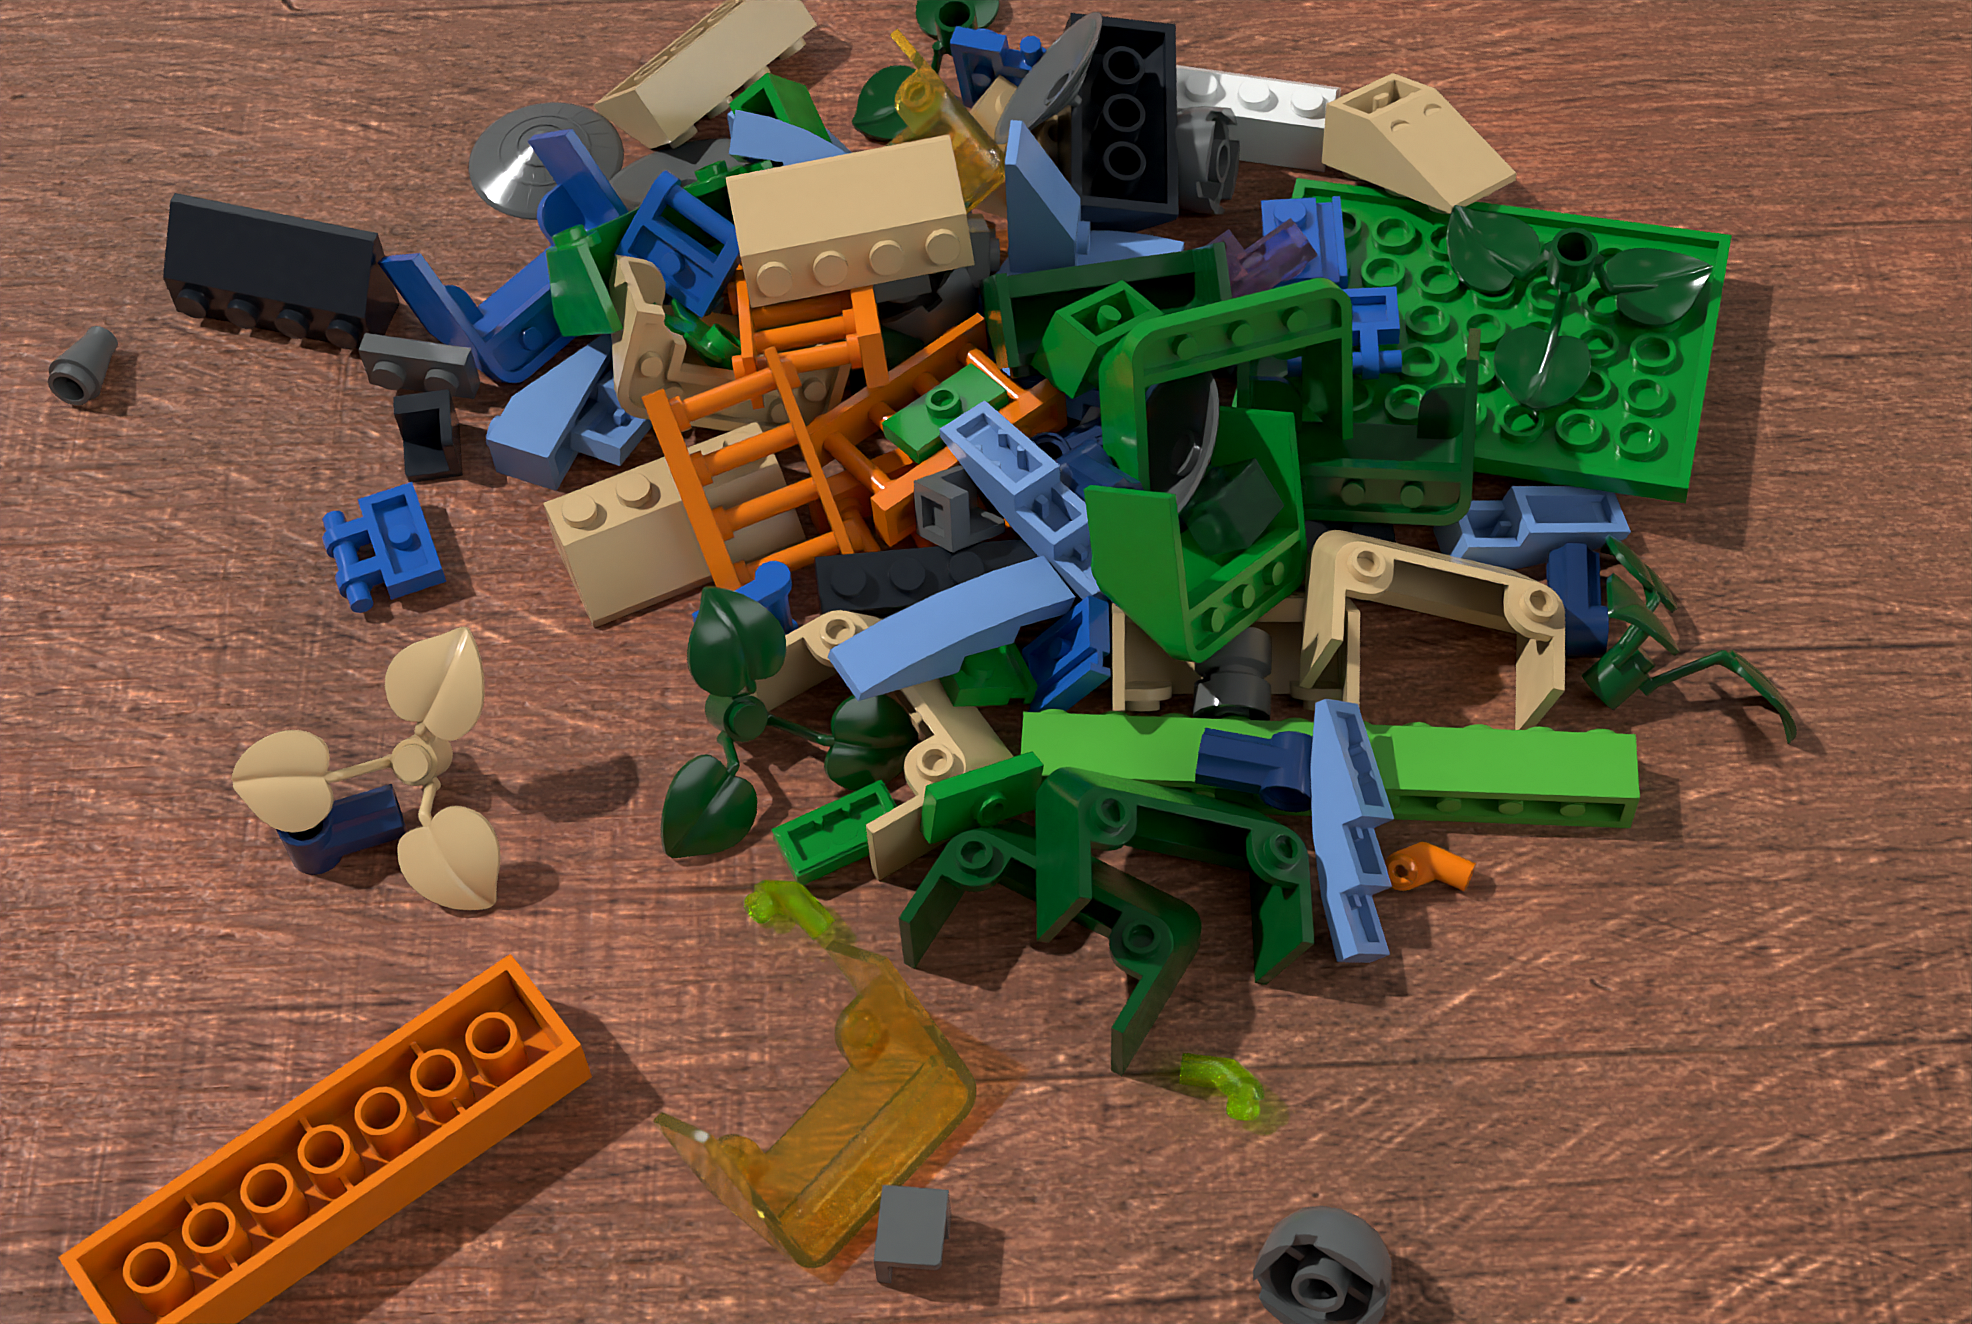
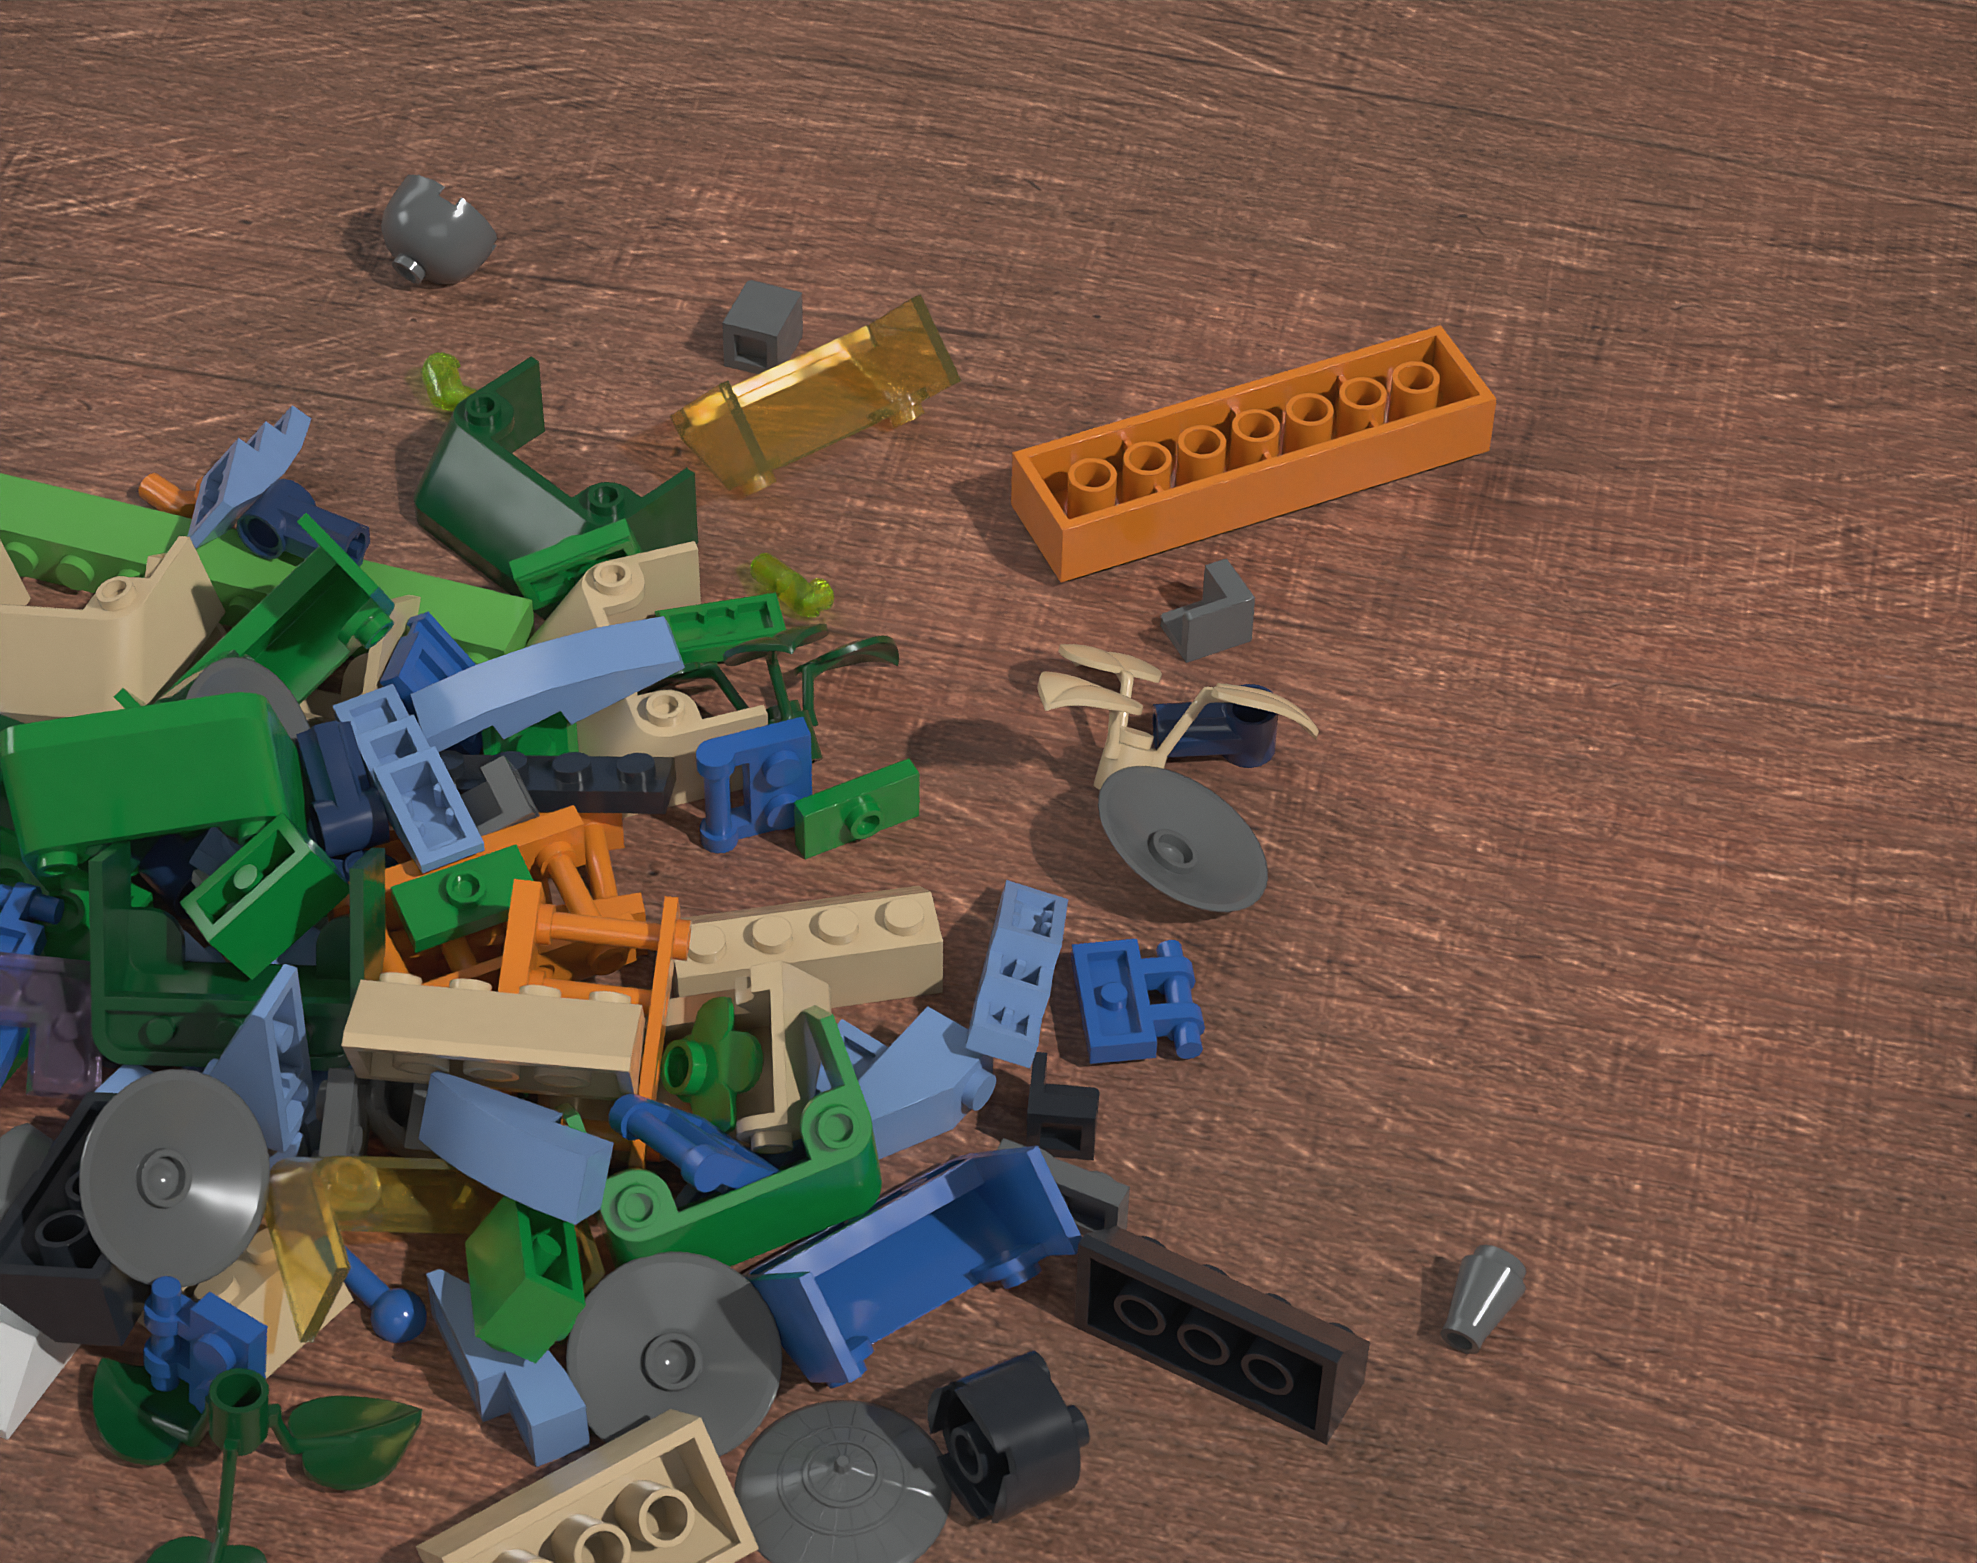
camera: 170 degrees left, 10 degrees down
(340, 682) = (1183, 838): none -> dark grey hat
(364, 964) = (1215, 622): none -> dark grey panel
(423, 163) = (1007, 1437): none -> black brick
(483, 524) = (1017, 974): none -> medium blue slope
(650, 667) = (857, 808): none -> green plate
(696, 471) = (749, 868): orange fence -> none
(1106, 812) = (448, 494): dark green windscreen -> none

